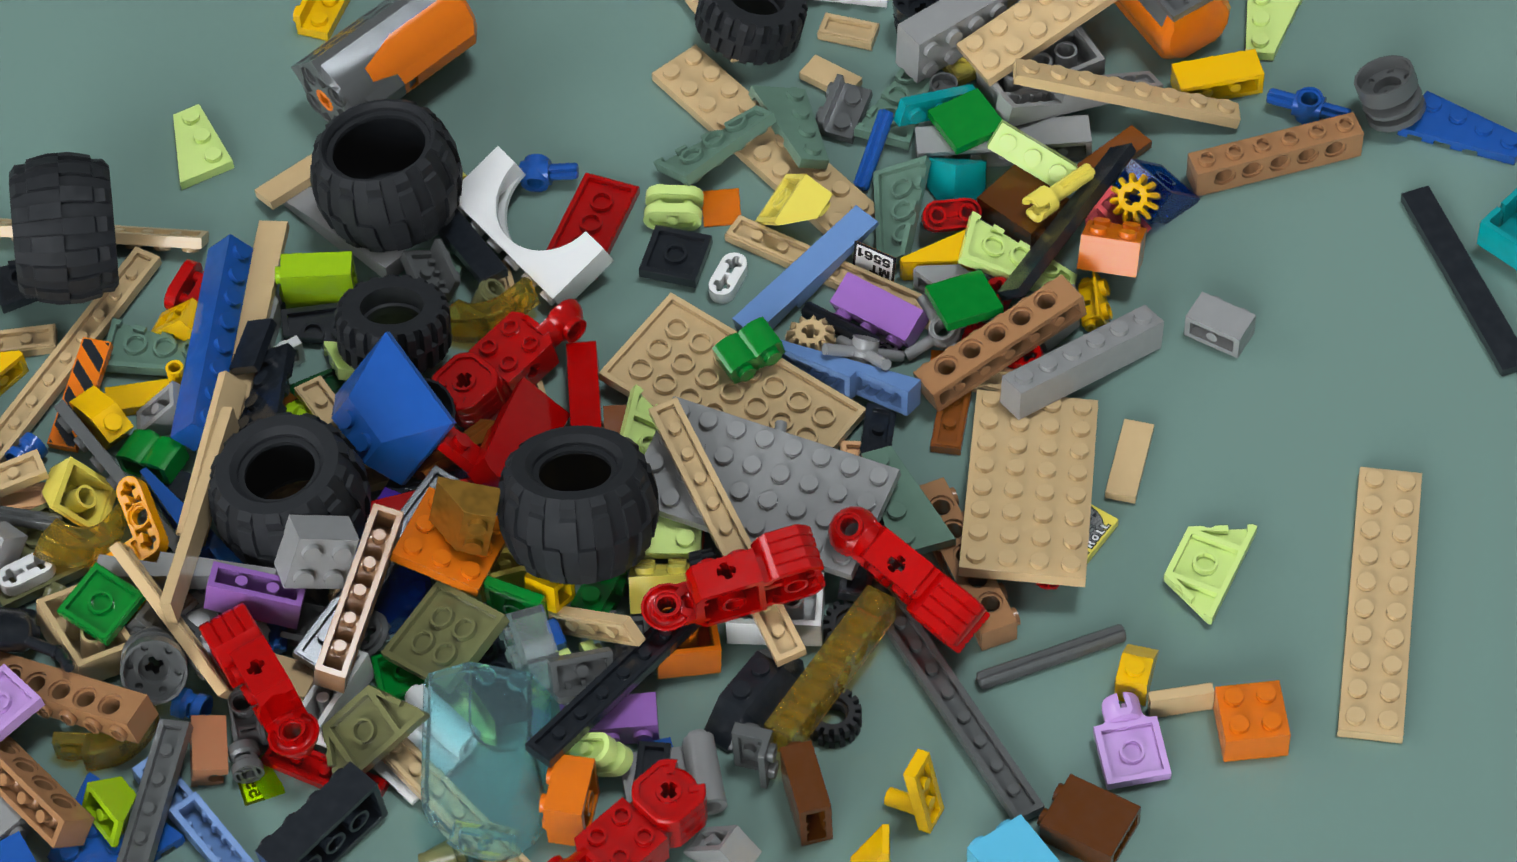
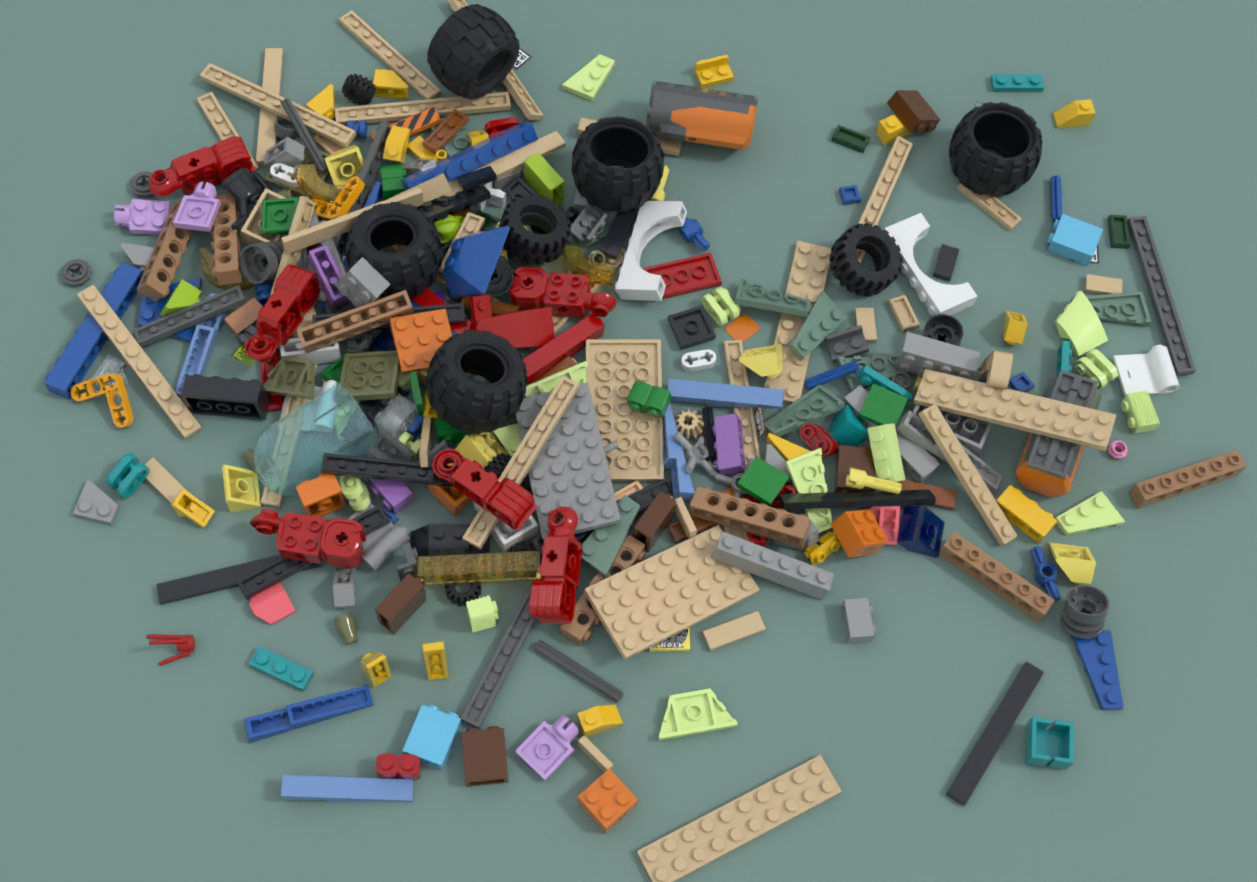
camera: 45 degrees right, 10 degrees up
(133, 350) = (445, 131): none -> dark orange tile
(465, 514) = (430, 336): pearl gold slope -> none
(893, 710) = (482, 613): none -> yellowish green brick
(919, 443) = (655, 520): none -> reddish brown brick
(942, 415) = (685, 519): none -> tan tile
(1133, 188) = (903, 527): yellow gear -> none
(1318, 67) = (1075, 562): none -> light yellow slope

